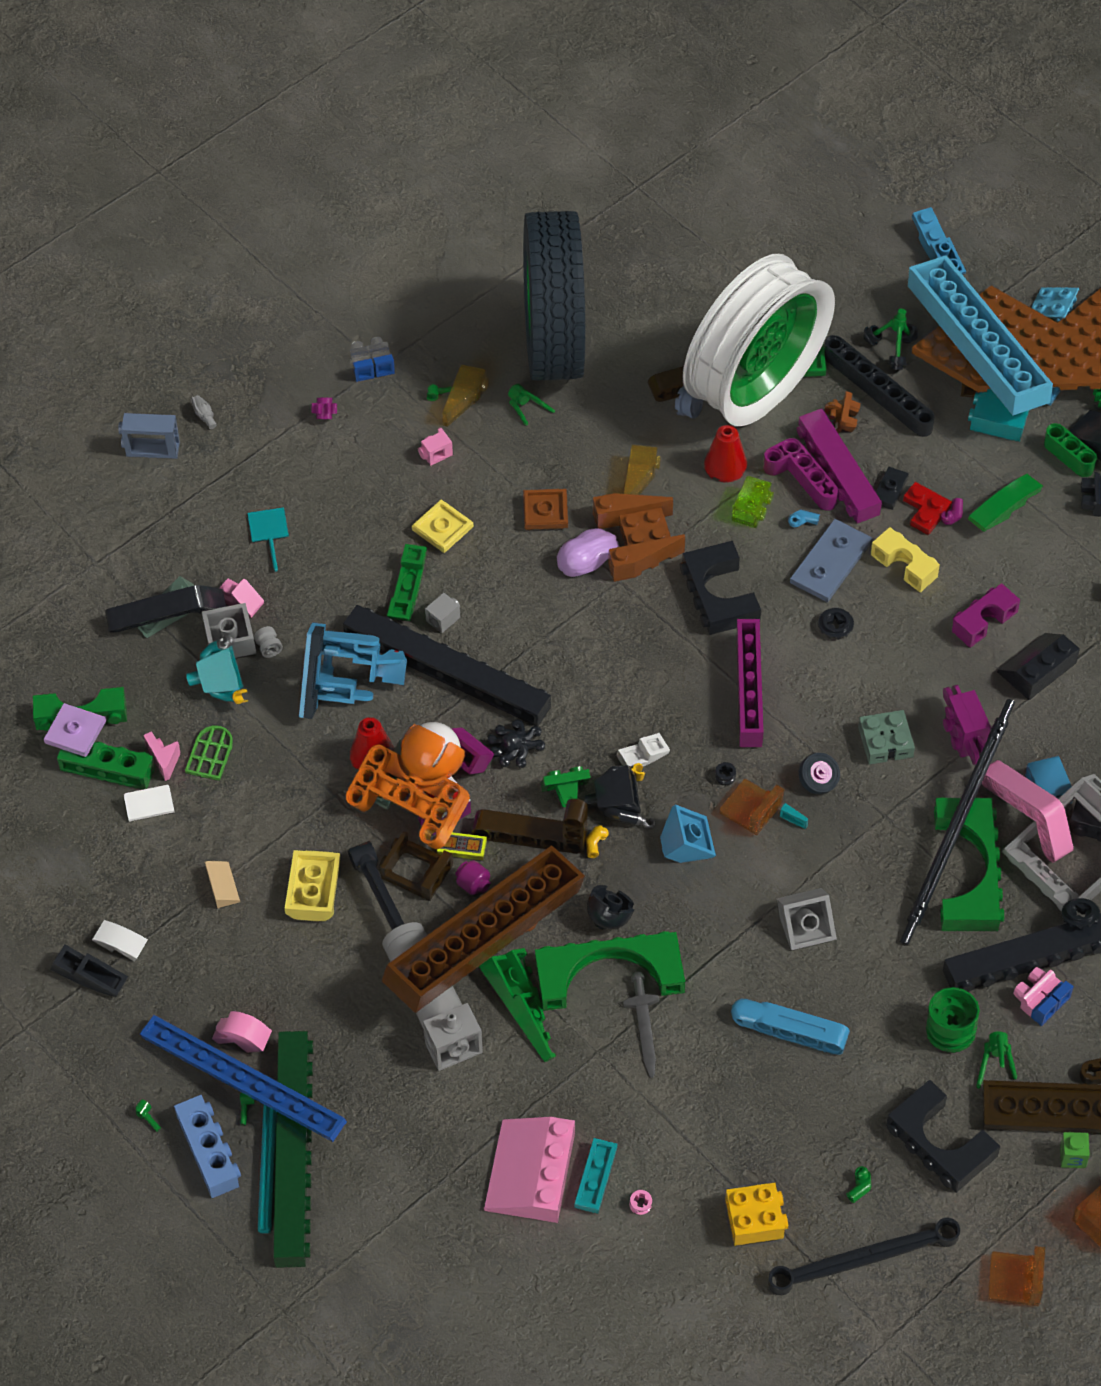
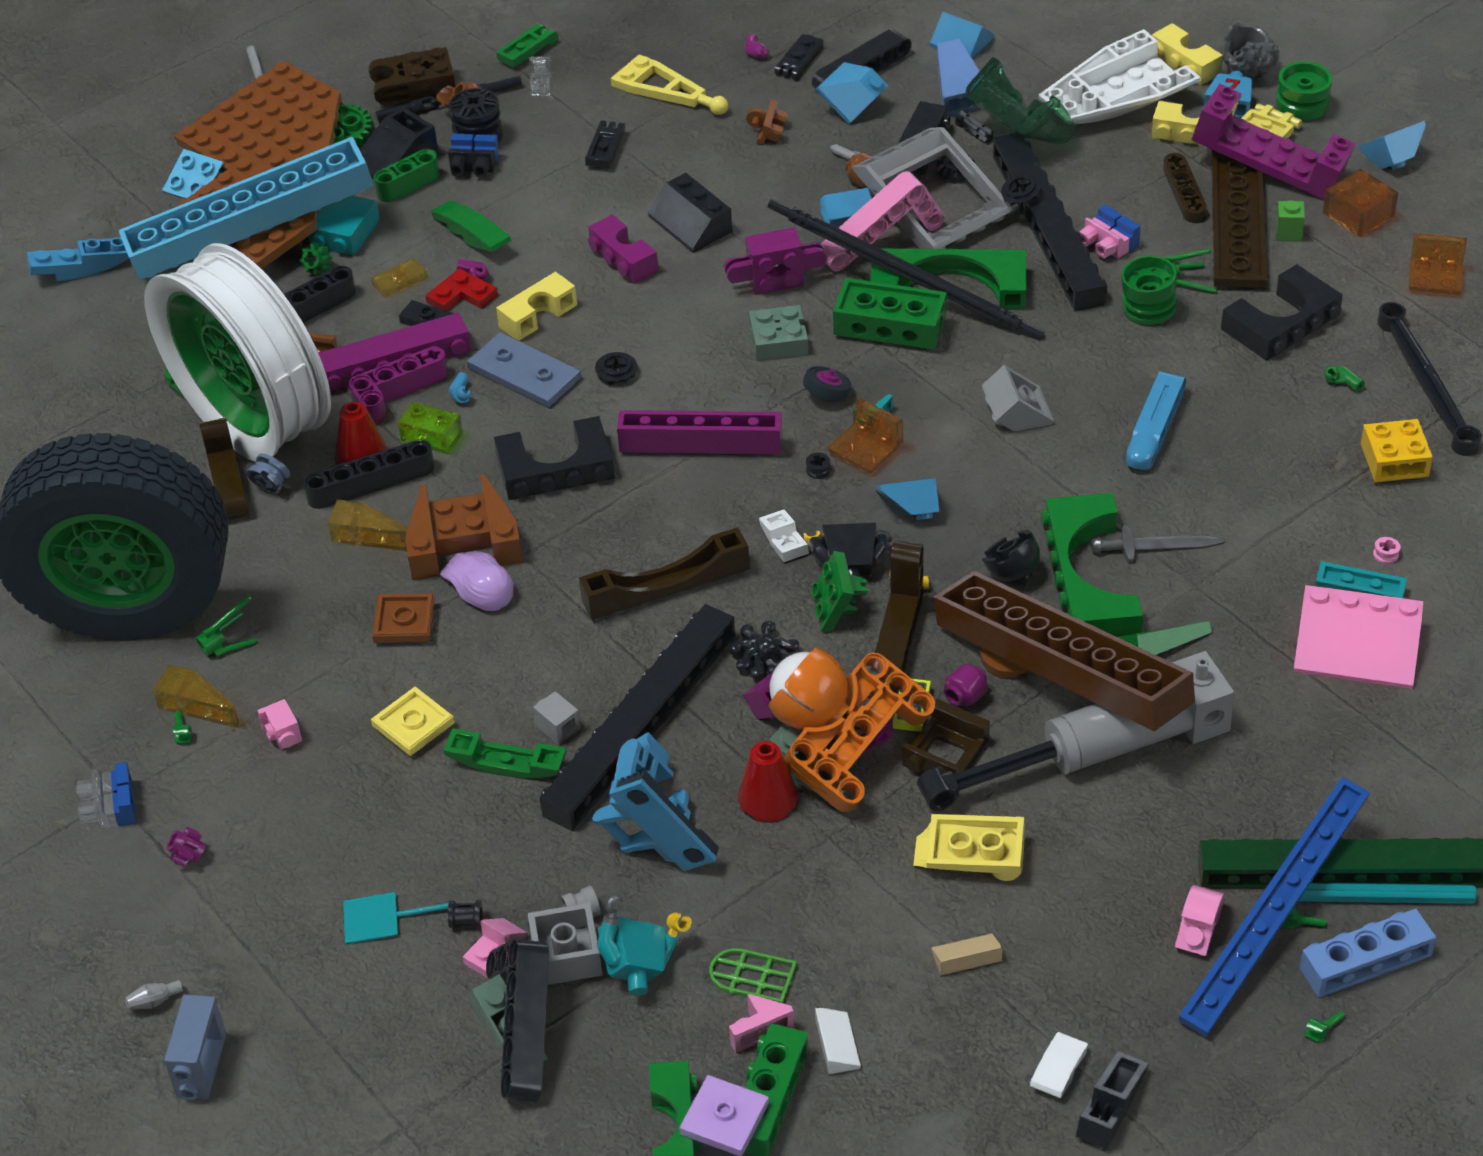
camera: 85 degrees left, 10 degrees down
(263, 575) = (465, 913): none -> black bush
(599, 692) = (615, 591): none -> dark brown arch
(697, 468) = (369, 474): none -> black beam
(908, 816) = (890, 313): none -> green brick
(940, 462) = (399, 277): none -> clear yellow plate
(950, 400) = (322, 255): none -> green gear

